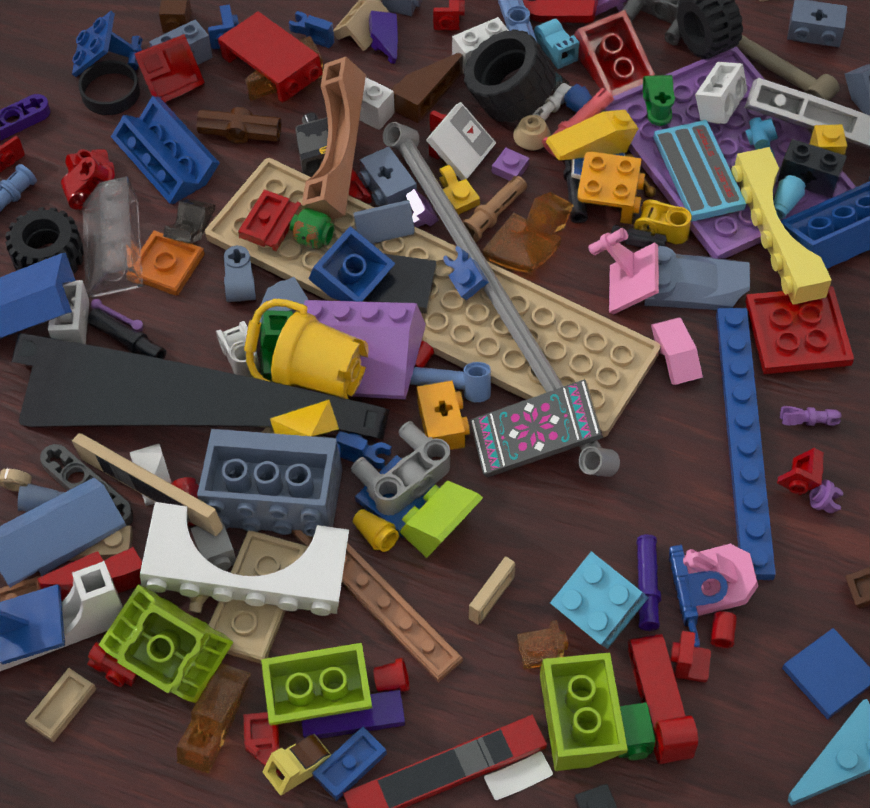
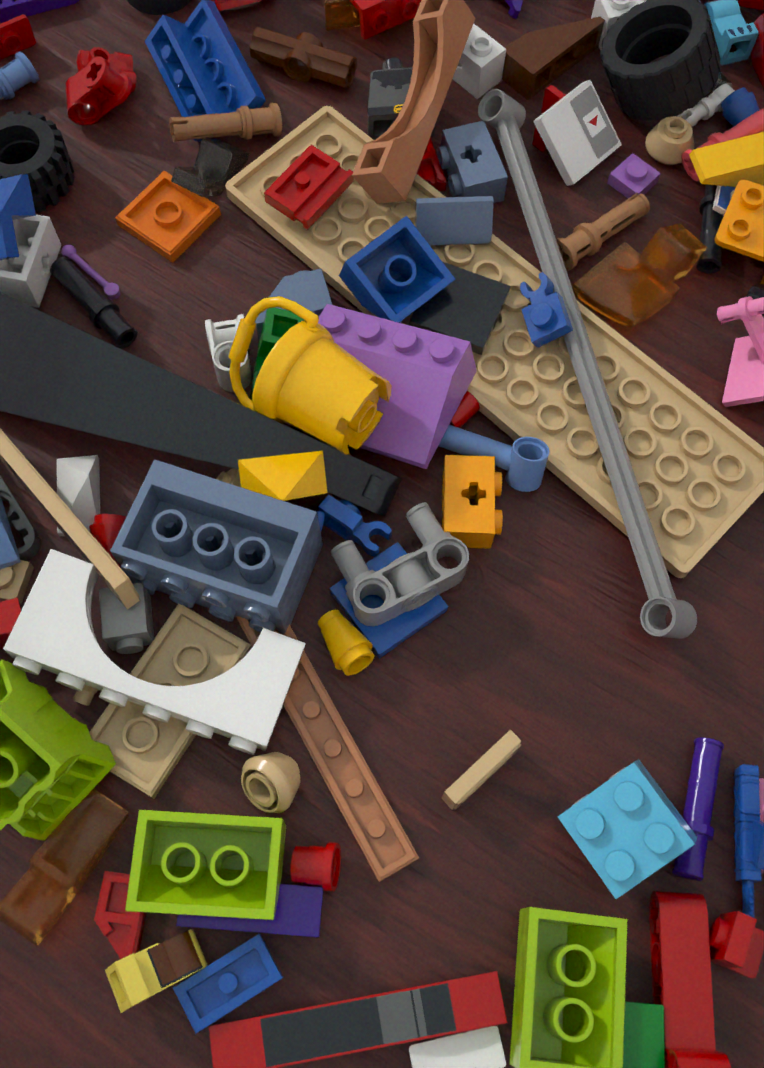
camera: 10 degrees right, 10 degrees up
(112, 239) = (109, 171): clear slope -> none
(206, 183) = (243, 122): none -> medium nougat pin
(238, 275) = (252, 251): sand blue piece -> none
(312, 228) = (359, 209): green head -> none
(345, 627) = (271, 781): none -> tan cone
(421, 209) = (506, 212): medium lavender tile -> none
(438, 516) = (434, 648): lime slope -> none
(459, 193) = (560, 201): yellow plate -> none
(536, 428) = (594, 550): dark grey tile -> none
(541, 645) = (533, 868): clear orange bracket -> none

